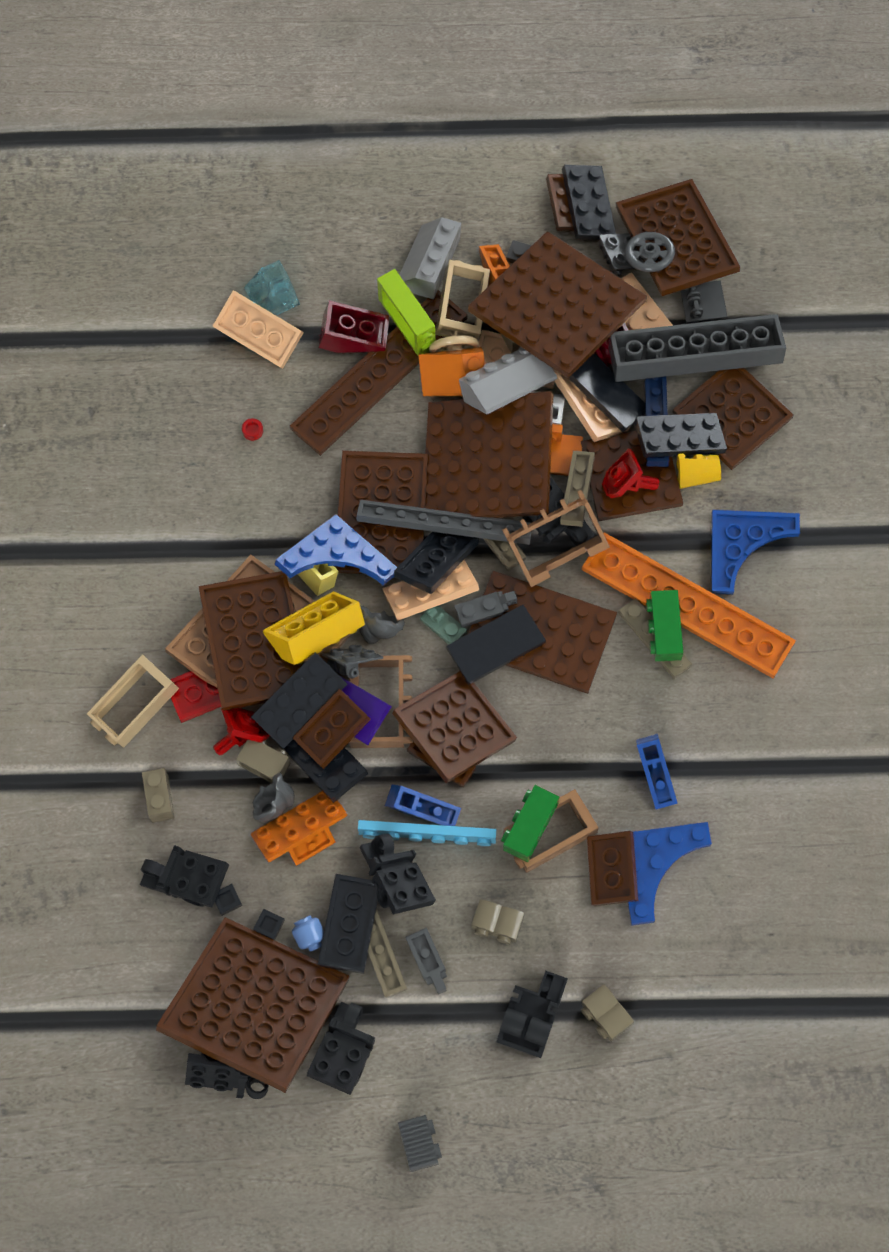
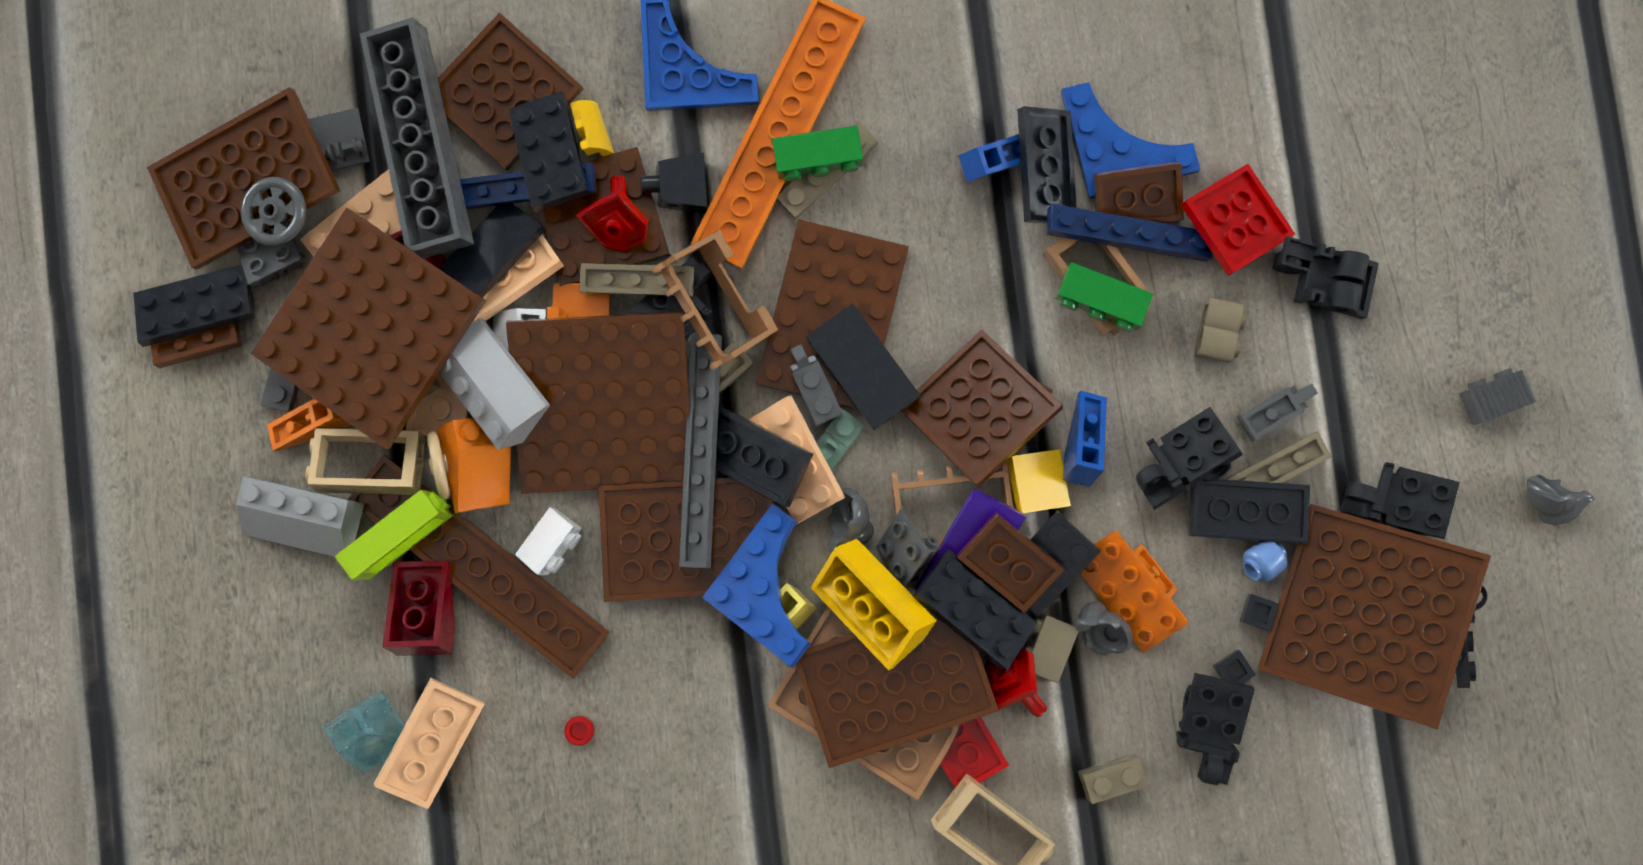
camera: 95 degrees left, 15 degrees up
(328, 1178) = (1555, 502): none -> dark grey hair
(389, 417) = (548, 542): none -> white slope
(392, 765) = (1038, 481): none -> yellow tile
(436, 833) = (1118, 417): medium azure plate -> none
(582, 855) = (1126, 232): none -> dark blue plate
(586, 944) = (1237, 219): none -> red plate
(607, 1013) = (1314, 189): dark tan brick -> none
(643, 799) = (1045, 161): none -> black plate
(651, 527) = (679, 183): none -> black torso

